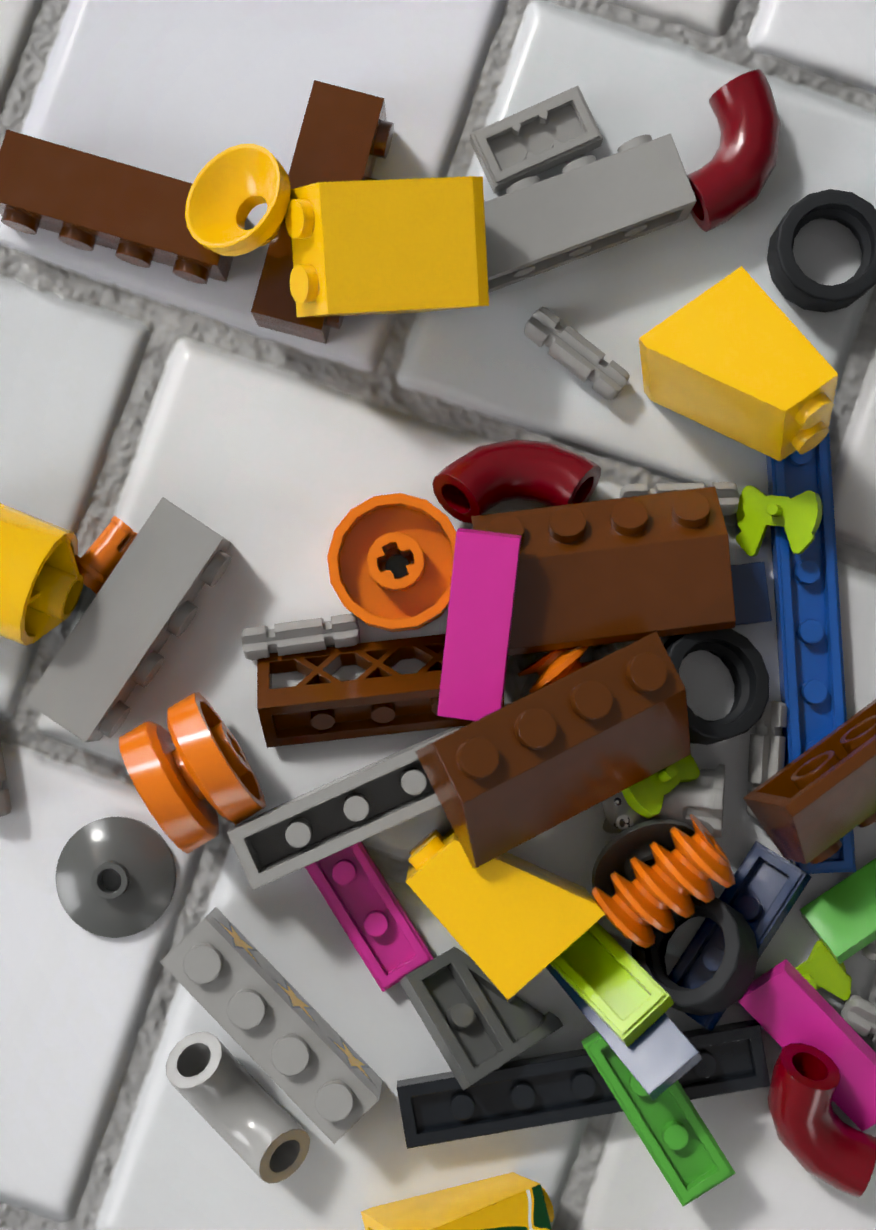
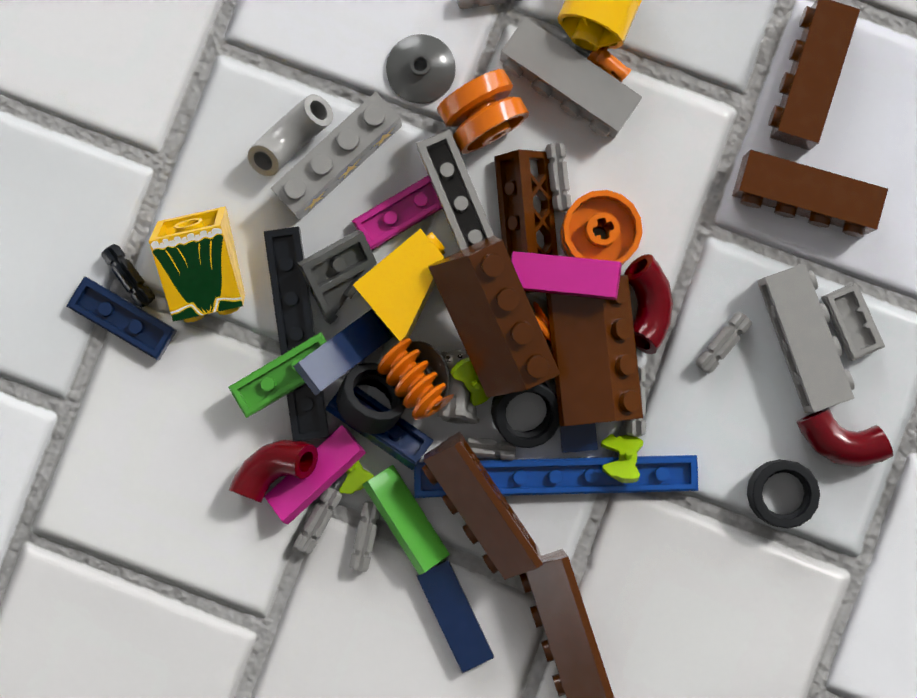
camera: 90 degrees right, 0 degrees up
(228, 192) = (817, 134): yellow piece -> none
(388, 246) = (786, 227): yellow slope -> none
(612, 984) = (359, 346): lime tile -> none
(741, 369) = (711, 432): yellow slope -> none

